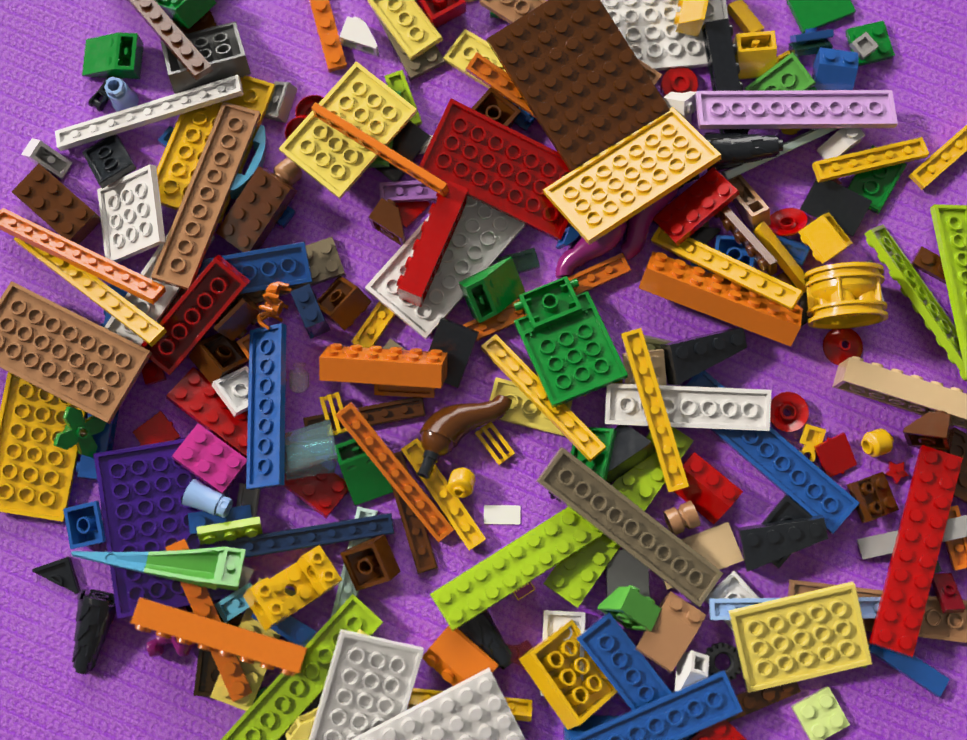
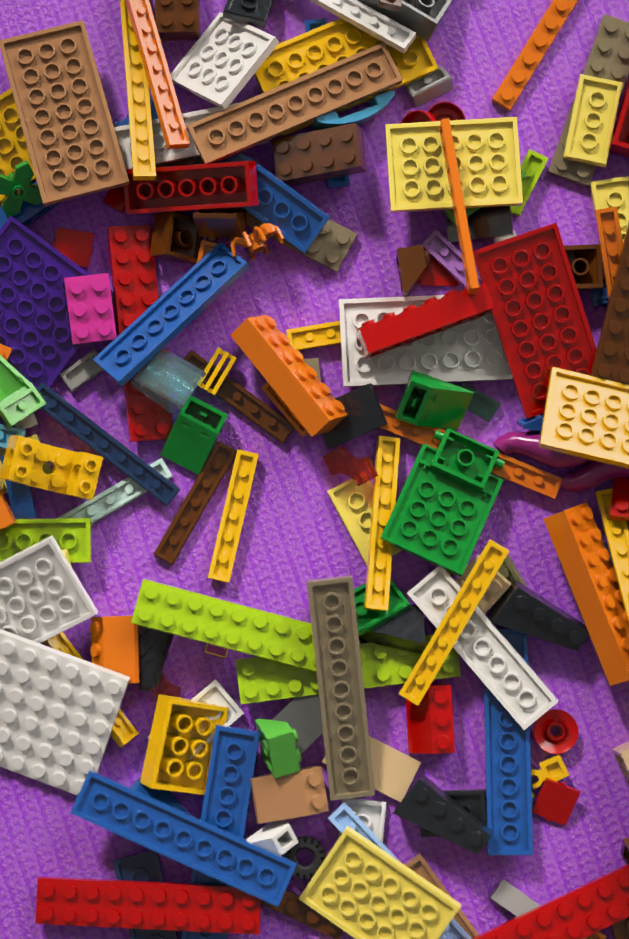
camera: 45 degrees right, 5 degrees up
(203, 518) = (52, 361): blue plate -> none
(206, 499) = (57, 337): light blue plant -> none
(229, 530) = (50, 377): lime plate -> none
(234, 390) = (161, 275): white plate -> none
(288, 171) = (375, 148): medium nougat head -> none
(299, 378) = (218, 316): clear arm -> none
(310, 311) = (277, 274): dark blue window -> none
(343, 302) = (311, 293): reddish brown slope -> none
(358, 36) = (543, 95): white slope -> none
(370, 563) = (127, 509): reddish brown slope -> none
(394, 471) = (213, 461): orange plate -> none
(451, 423) = (294, 471): reddish brown animal -> none
(461, 482) = (255, 522): yellow head -> none
(475, 387) = (342, 462): none -> clear red tile
(484, 429) = (314, 500): yellow tile -> none
(502, 514) = (260, 577): white sticker -> none
(680, 518) = (387, 722): medium nougat wheel -> none
(873, 497) = (549, 862): reddish brown plate -> none
(877, 442) = (597, 826): yellow head -> none
(896, 471) = (589, 862): red piece -> none

